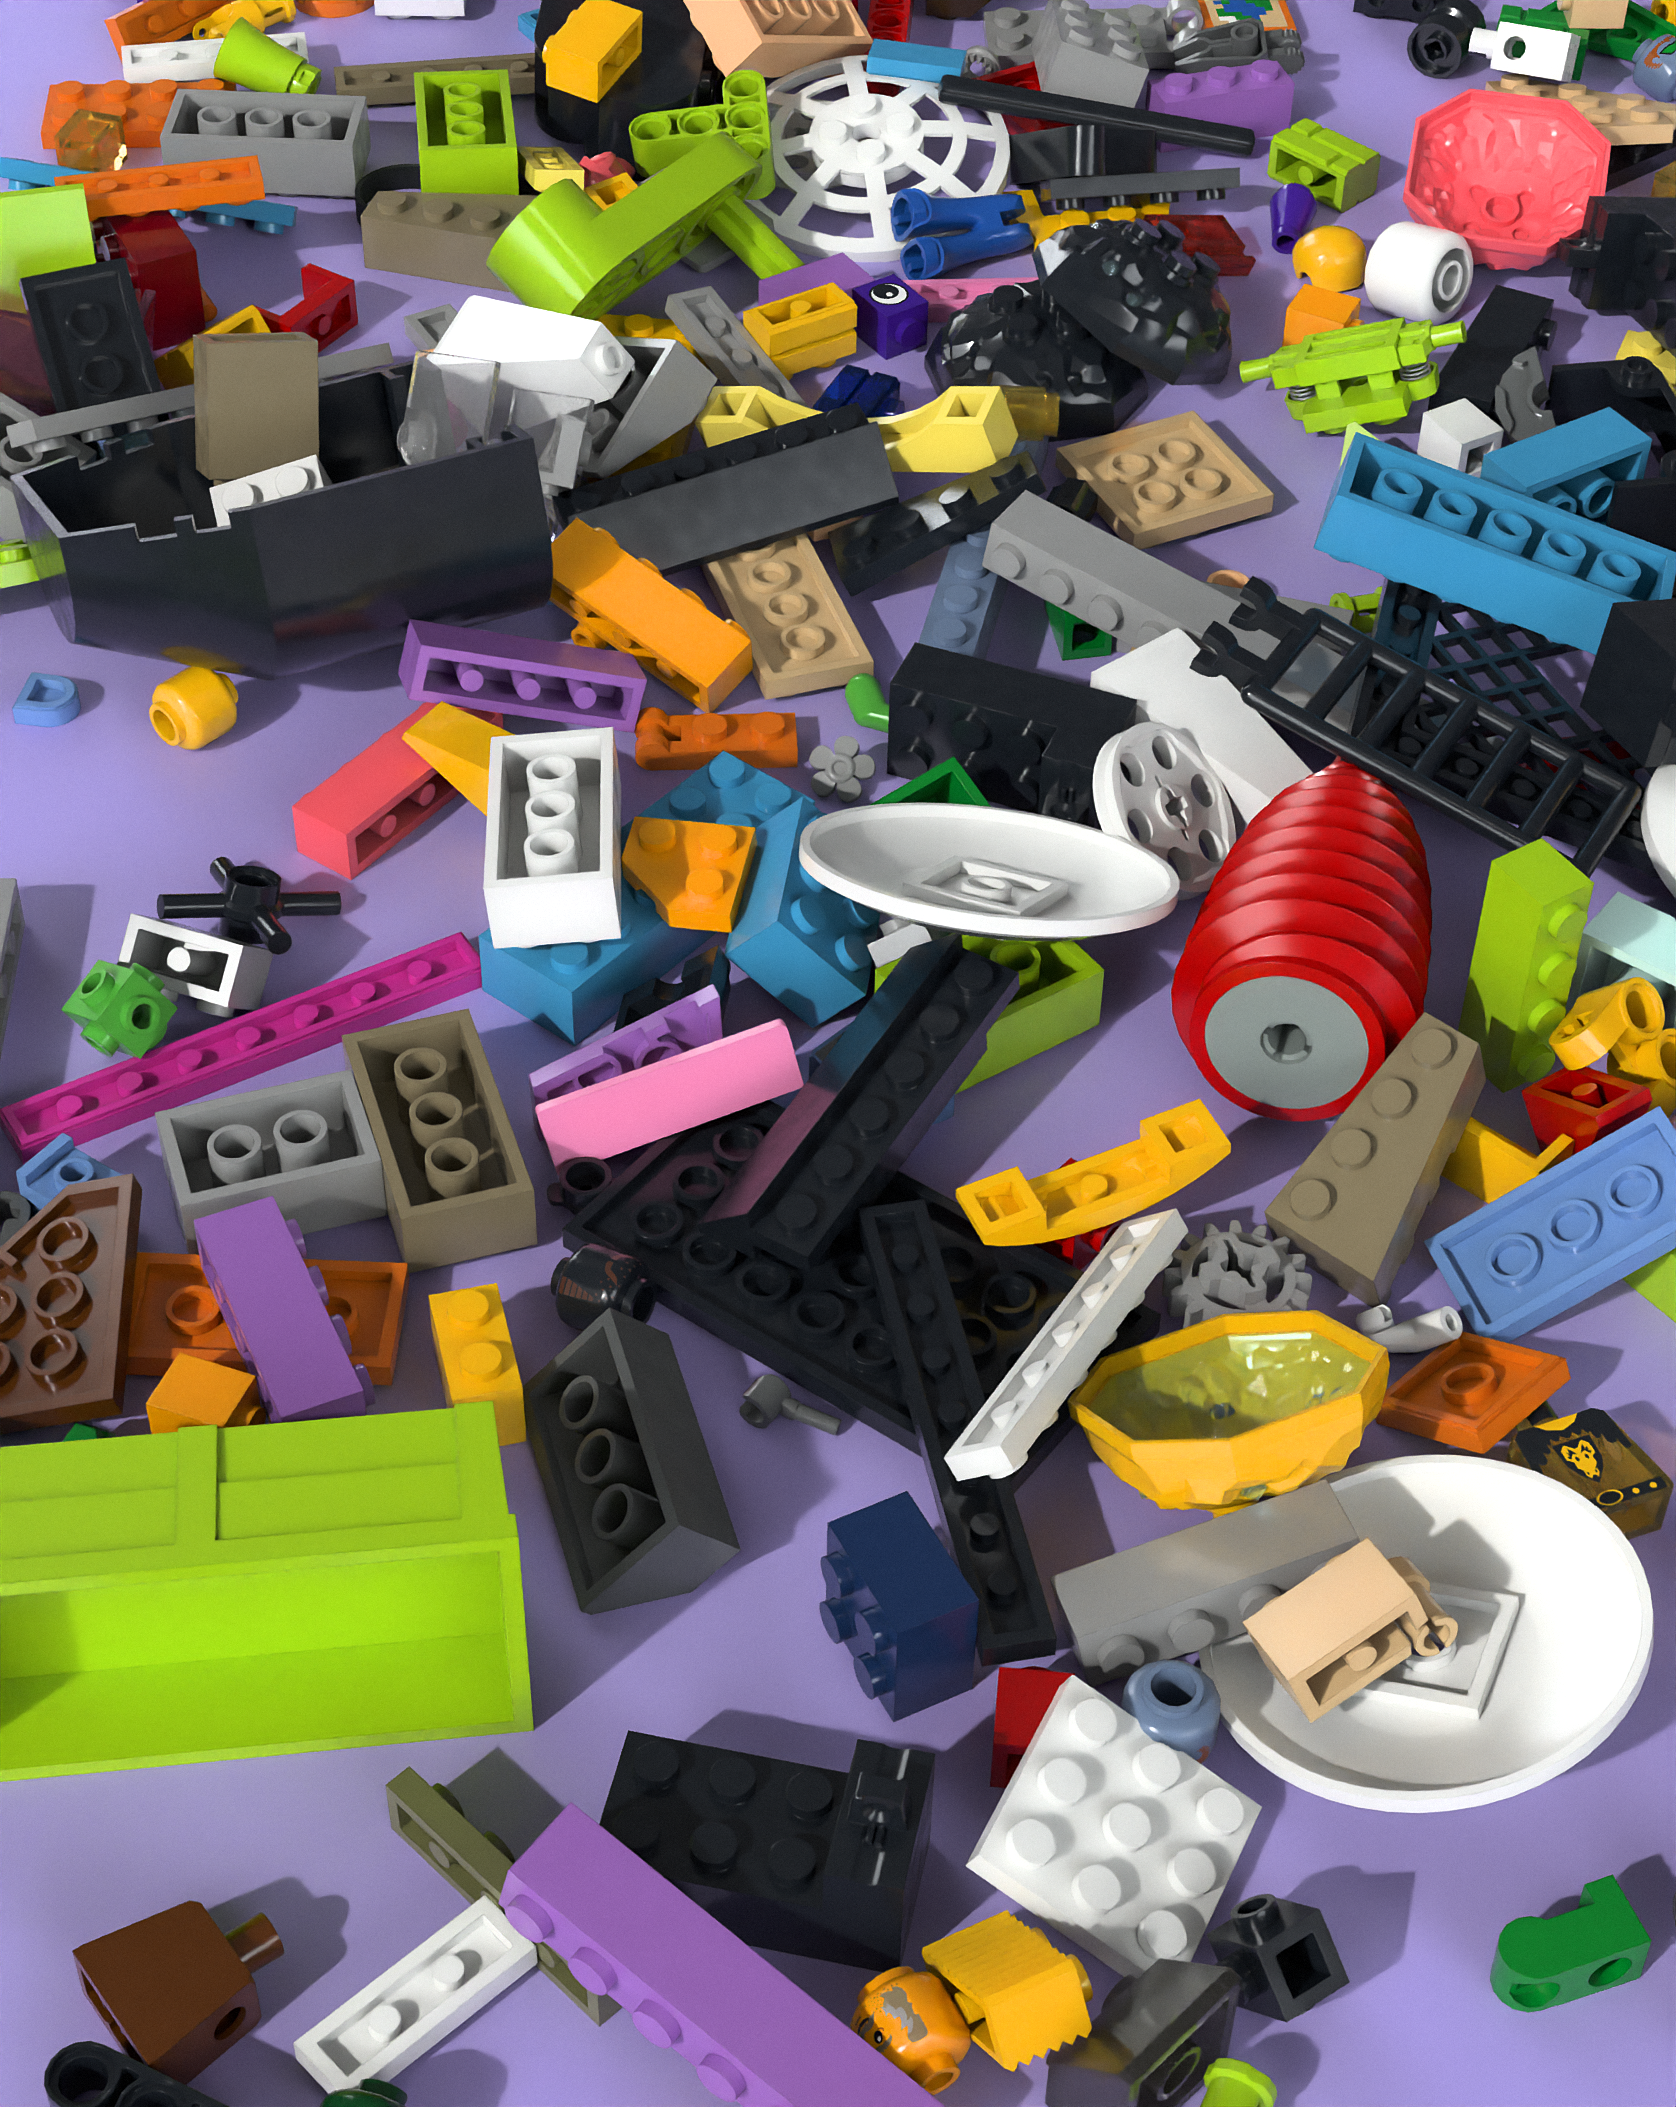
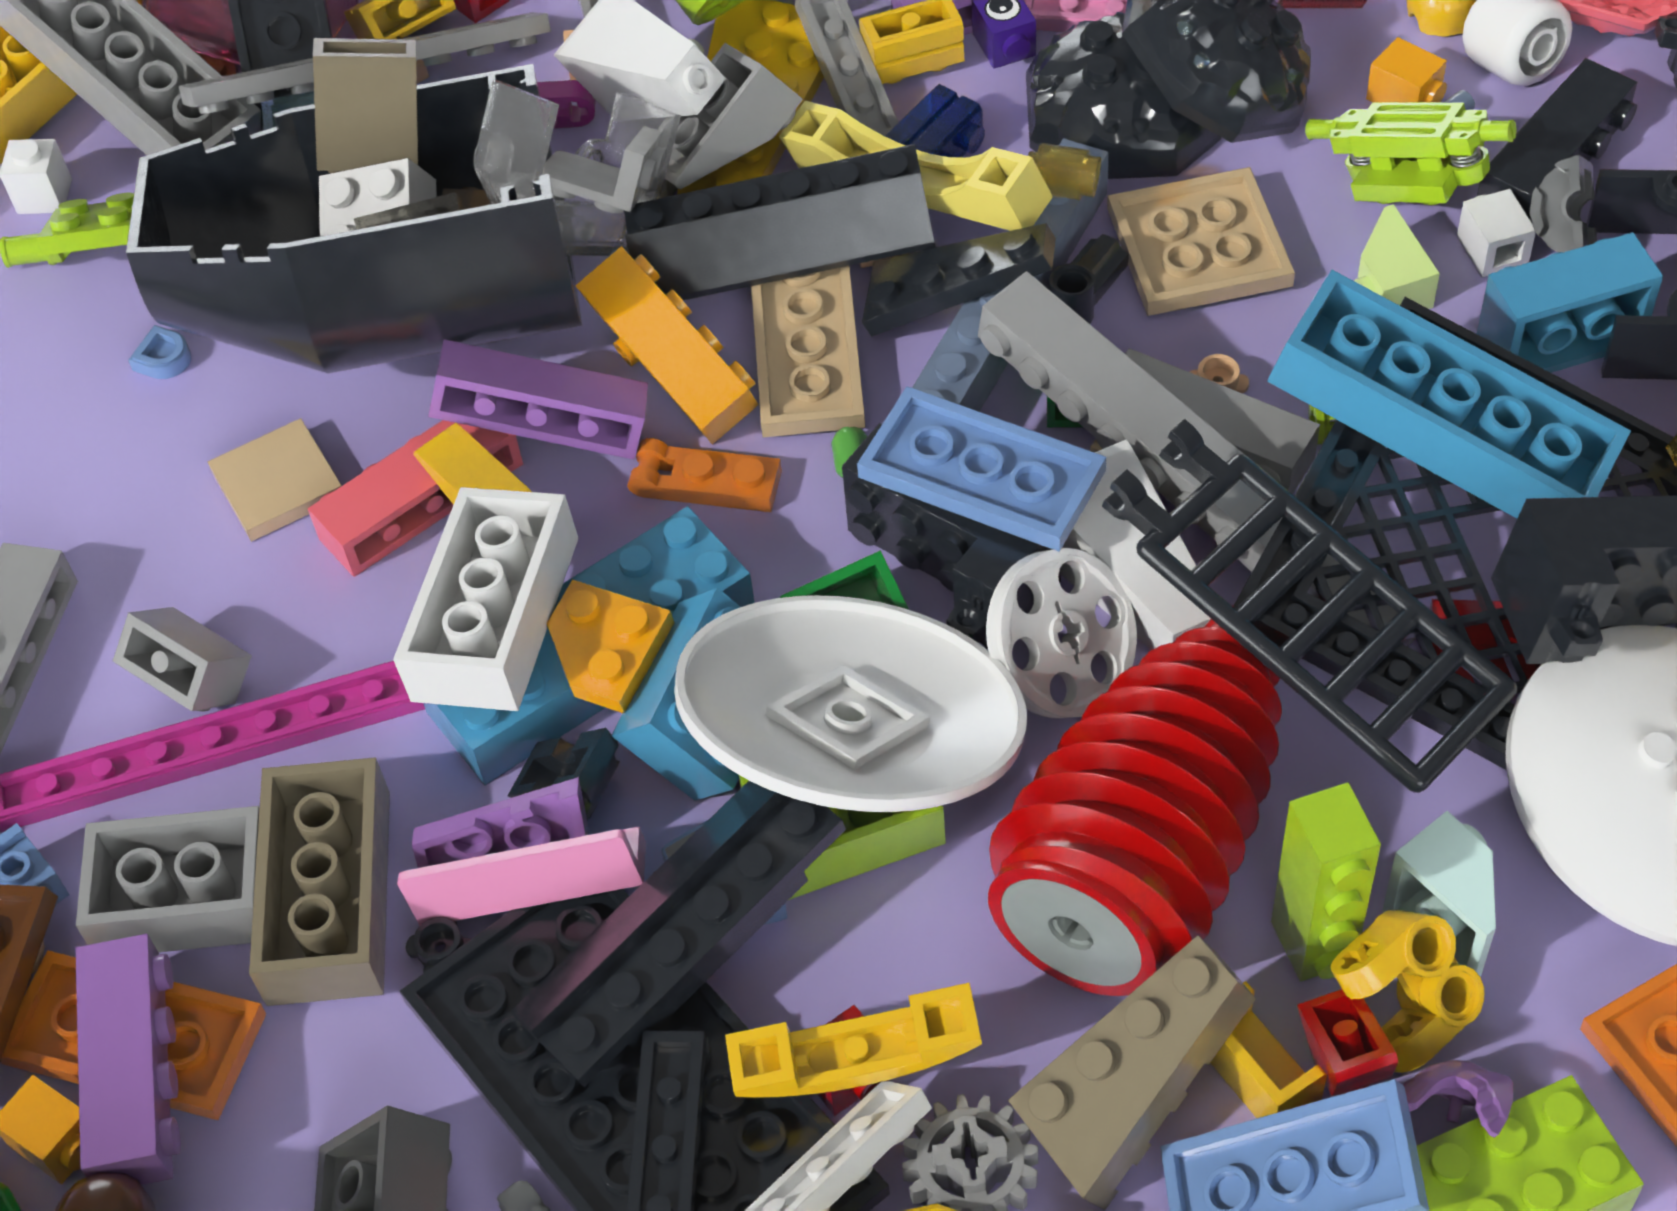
camera: 20 degrees right, 10 degrees up
(120, 1009) = (105, 700): bright green brick -> none
(194, 707) = (268, 386): yellow head -> none
(227, 798) = (274, 478): none -> tan tile
(249, 905) = (248, 602): black bar -> none
(478, 1356) = (282, 1125): yellow brick -> none
(601, 1279) = (412, 1065): black head -> none
(841, 769) = (801, 527): light grey plant -> none
(1044, 660) = (982, 468): none -> medium blue plate

